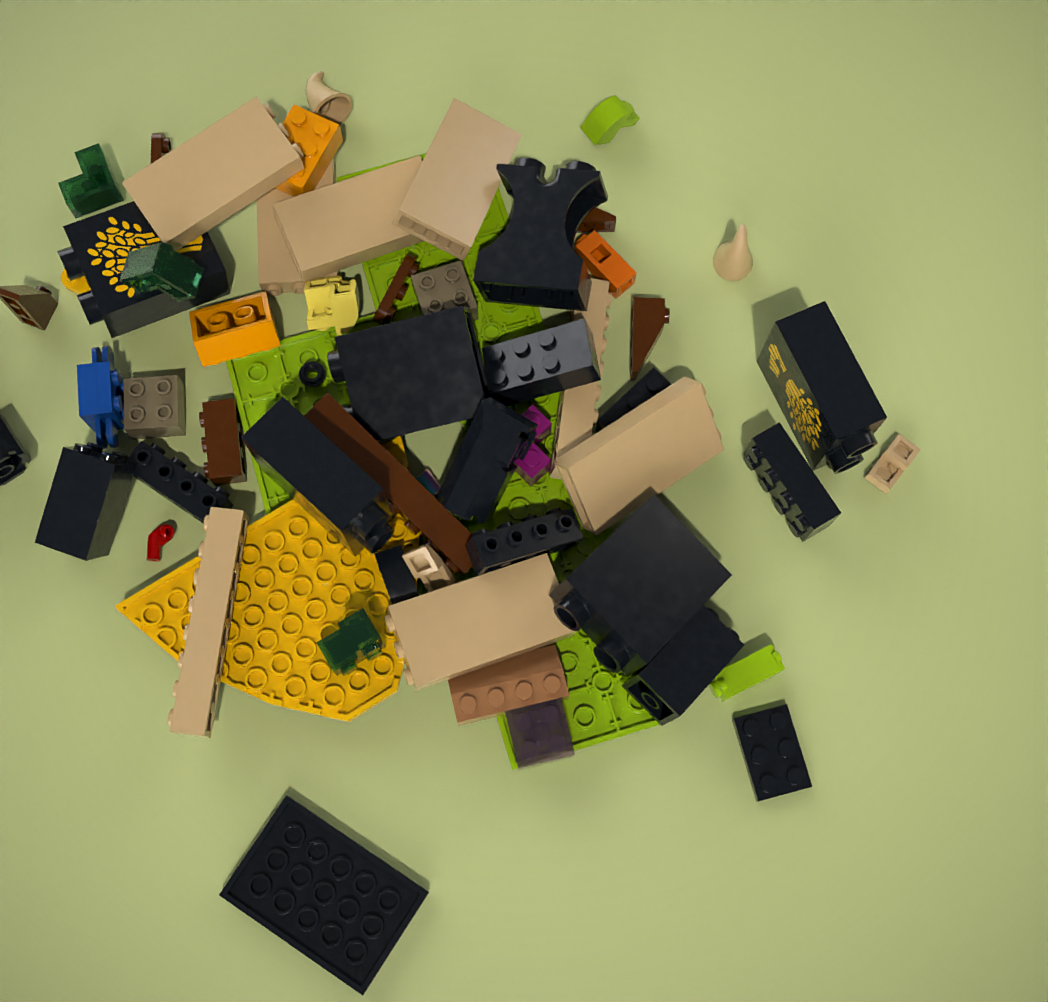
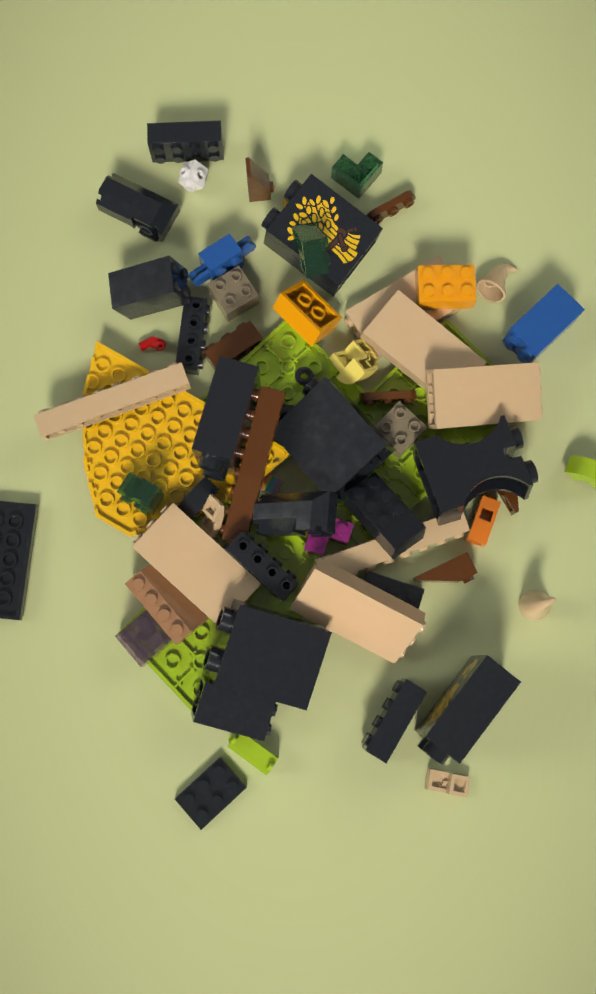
camera: 60 degrees right, 5 degrees up
(215, 174) = (395, 243): tan brick -> none
(409, 74) = (542, 324): none -> blue brick

